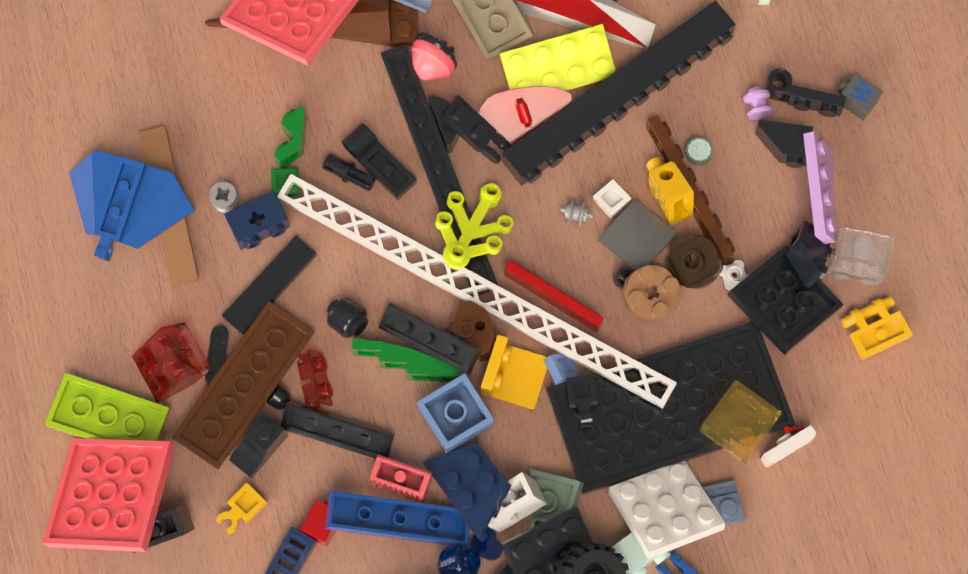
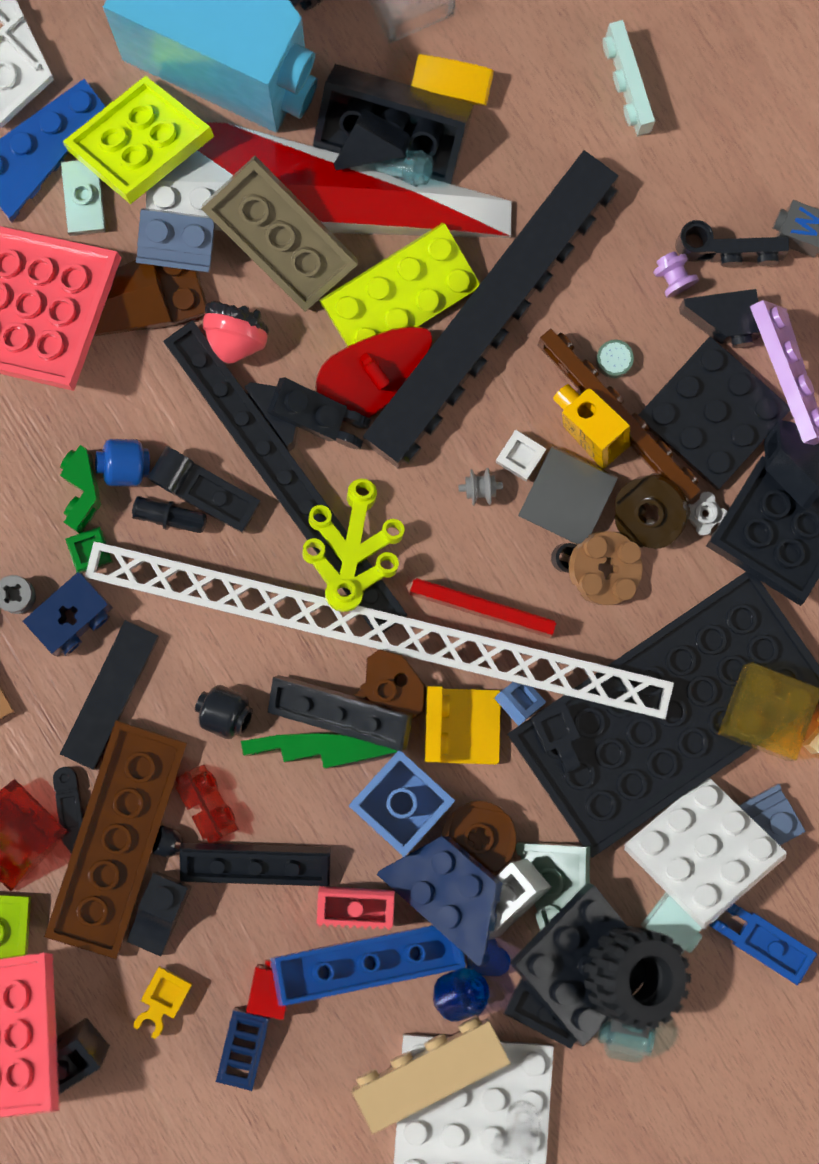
camera: 20 degrees left, 10 degrees up
(327, 127) = (123, 462): none -> blue head
(518, 447) = (497, 826): none -> reddish brown plate
(759, 207) = (713, 413): none -> black plate

